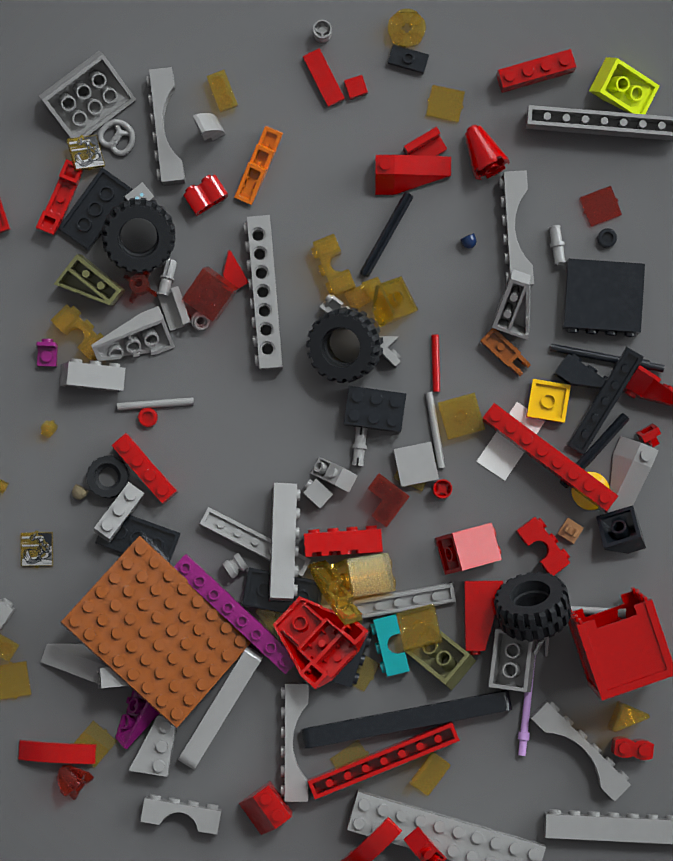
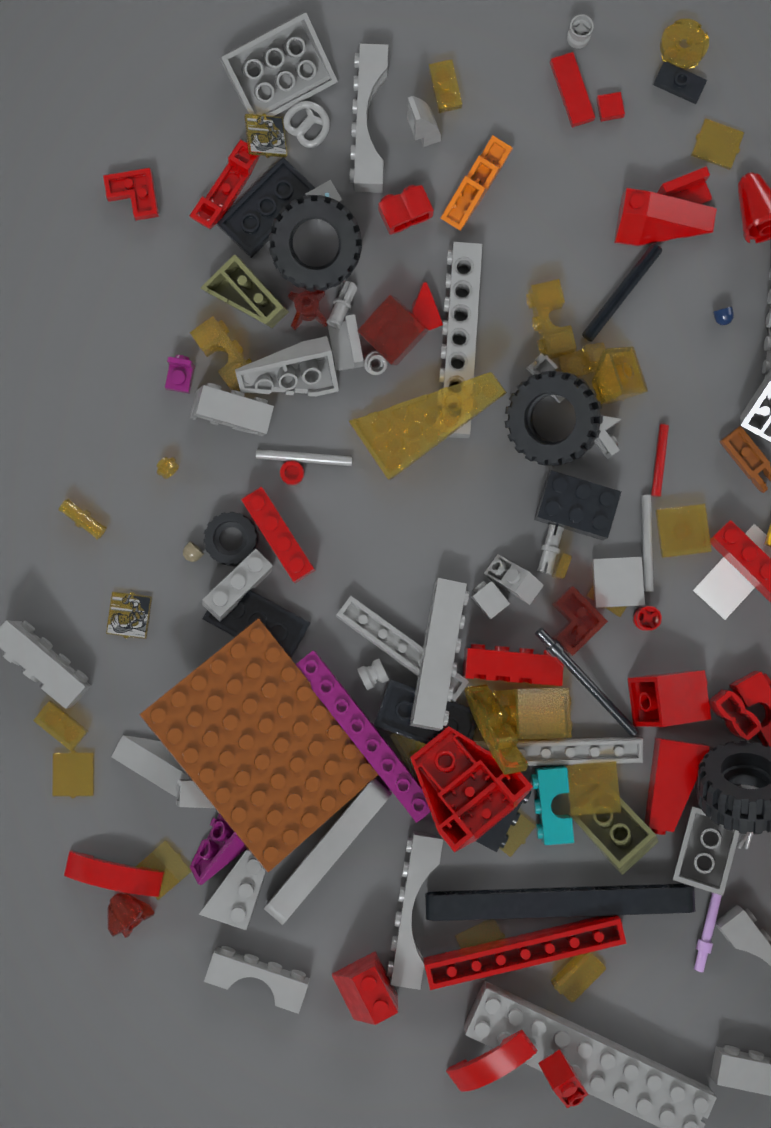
camera: 10 degrees right, 0 degrees up
(239, 367) = (414, 427): none -> clear yellow wing
(370, 458) = (562, 566): none -> clear yellow tile
(372, 524) = (555, 648): none -> black bar
(523, 556) = (737, 719): none -> red brick

